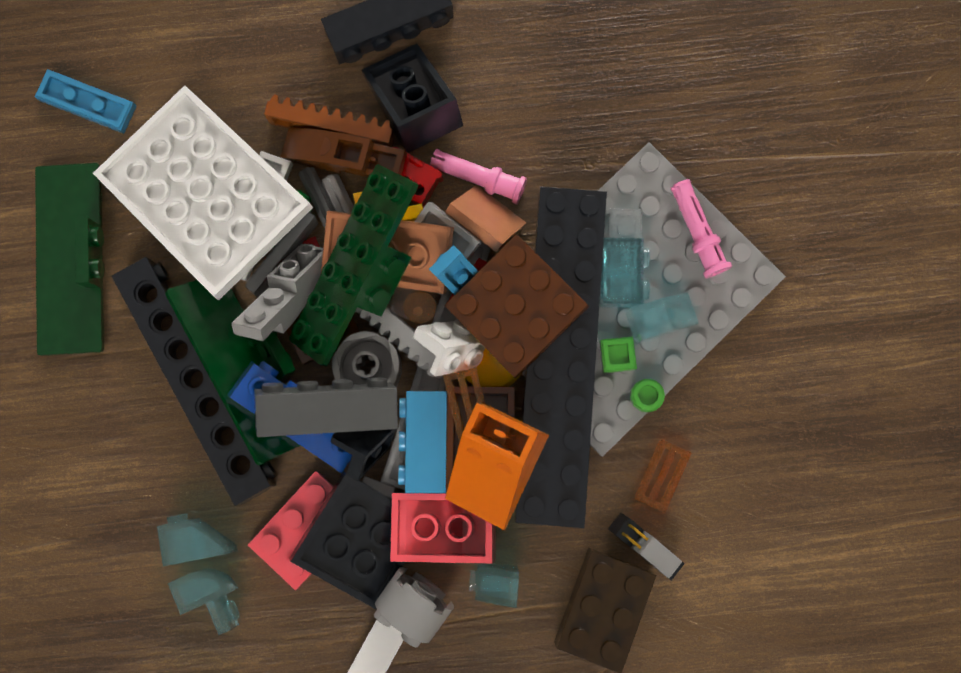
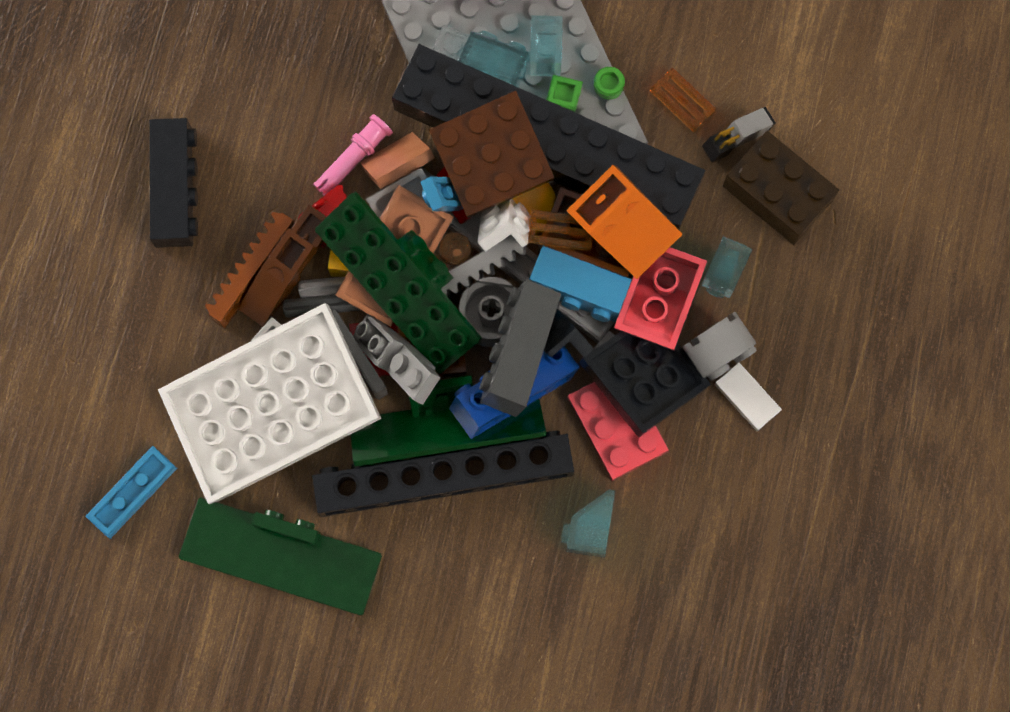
camera: 70 degrees left, 5 degrees down
(207, 588) = (638, 526): clear light blue brick -> none
(413, 97) = (255, 186): black slope -> none

